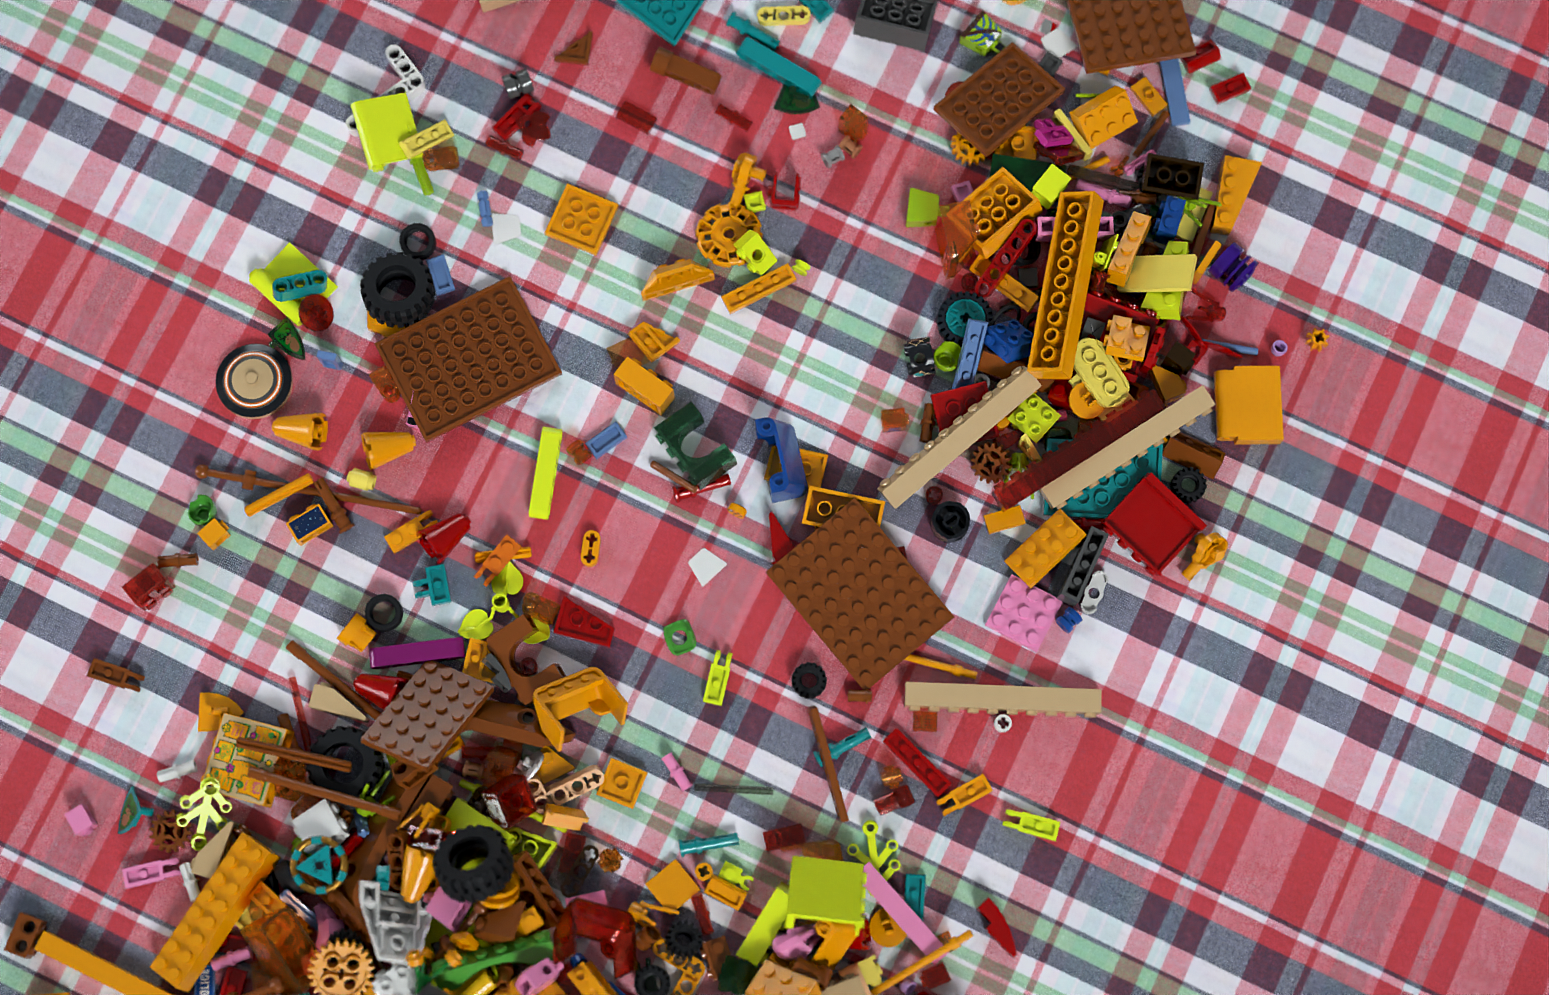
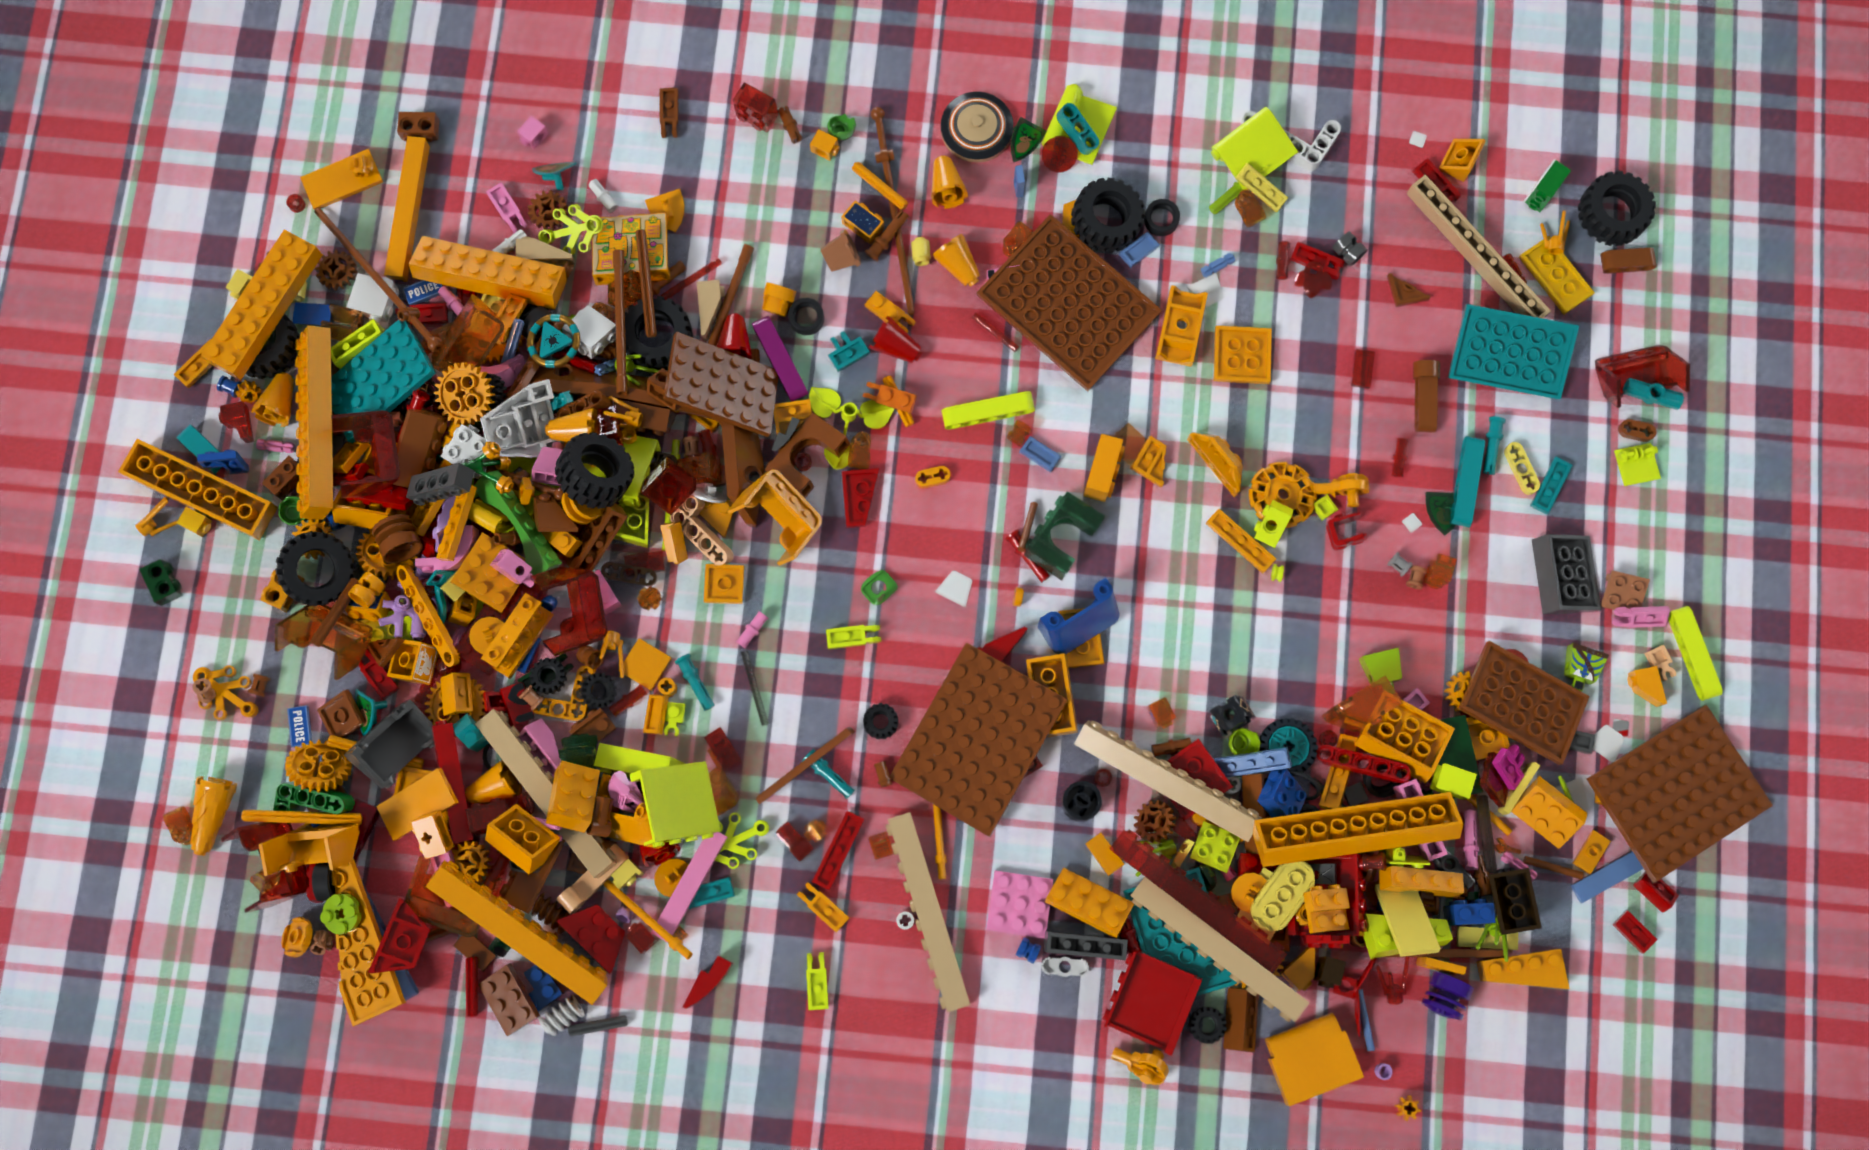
camera: 70 degrees right, 0 degrees up
(333, 556) = (841, 252): none -> nougat container
(470, 438) = (995, 332): none -> clear red bar
(547, 276) = (1179, 344): none -> light orange piece

